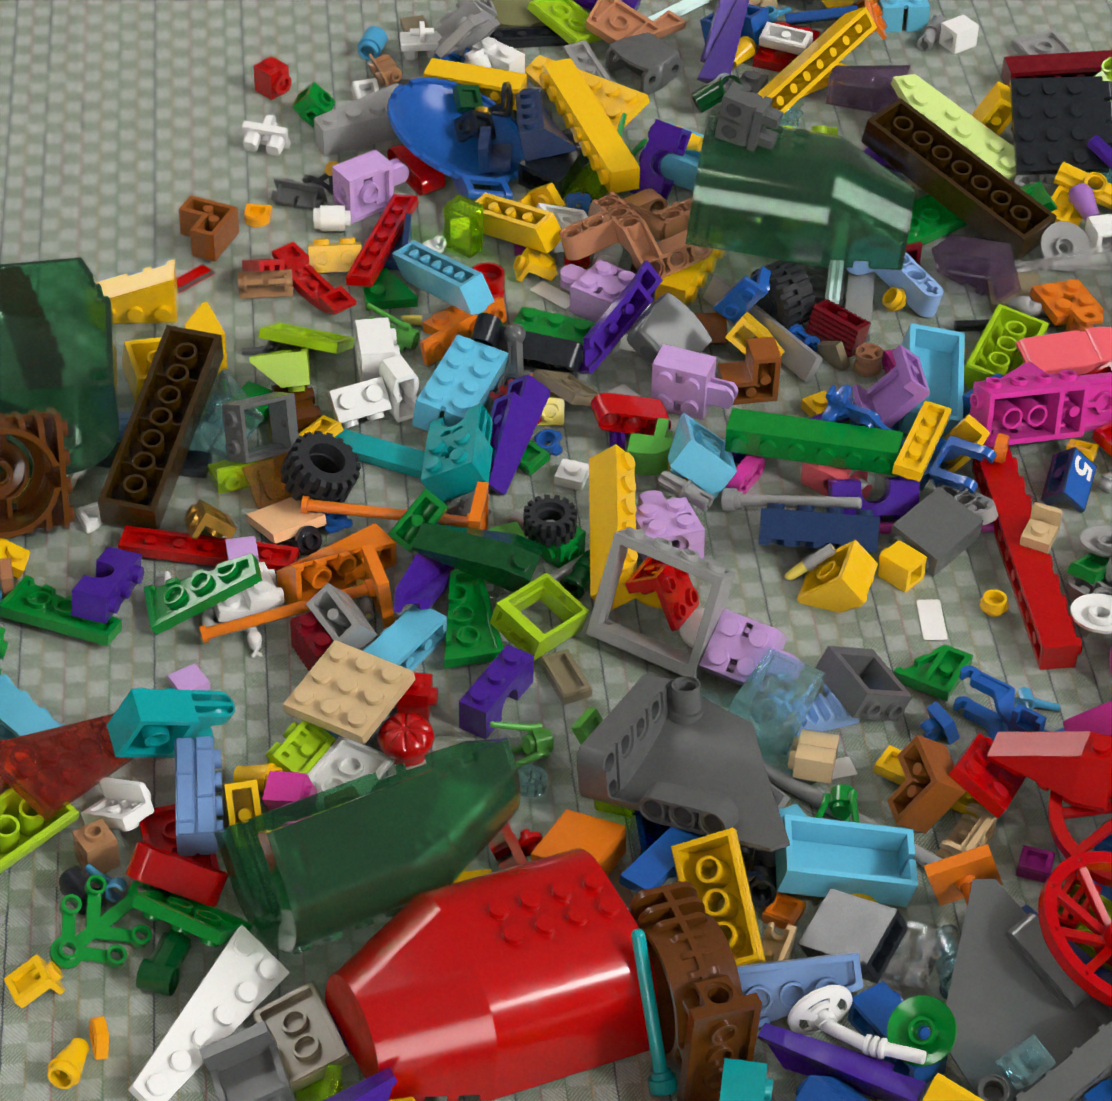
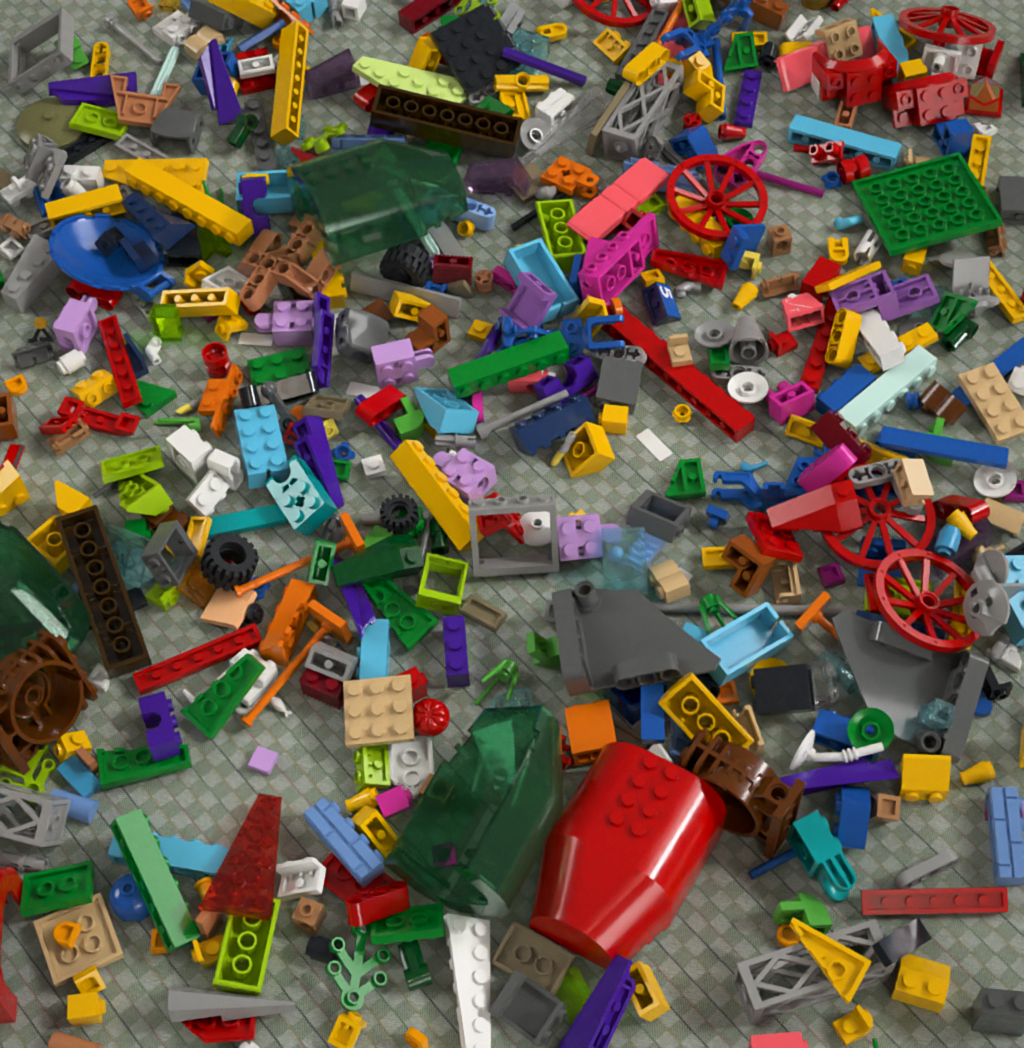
camera: 30 degrees left, 15 degrees up
(116, 882) = (339, 931): dark azure hand -> none
(154, 718) = (288, 806): teal brick -> none
(204, 515) = (185, 638): pearl gold bracket -> none
(241, 546) = (224, 648): lavender tile -> none
(443, 277) = (192, 372): medium azure brick -> none
(467, 97) = (92, 222): dark green tile -> none
(506, 88) = (121, 219): black piece -> none
(579, 198) = (218, 260): blue plate -> none
(662, 1079) = (748, 848): teal piece -> none
(744, 295) = (390, 280): blue bracket -> none
(745, 119) = (334, 166): dark grey hips -> none
(787, 981) = (779, 743): medium blue wing -> none
(922, 441) = (572, 329): yellow plate -> none
(1083, 200) = (525, 97): medium lavender cone -> none

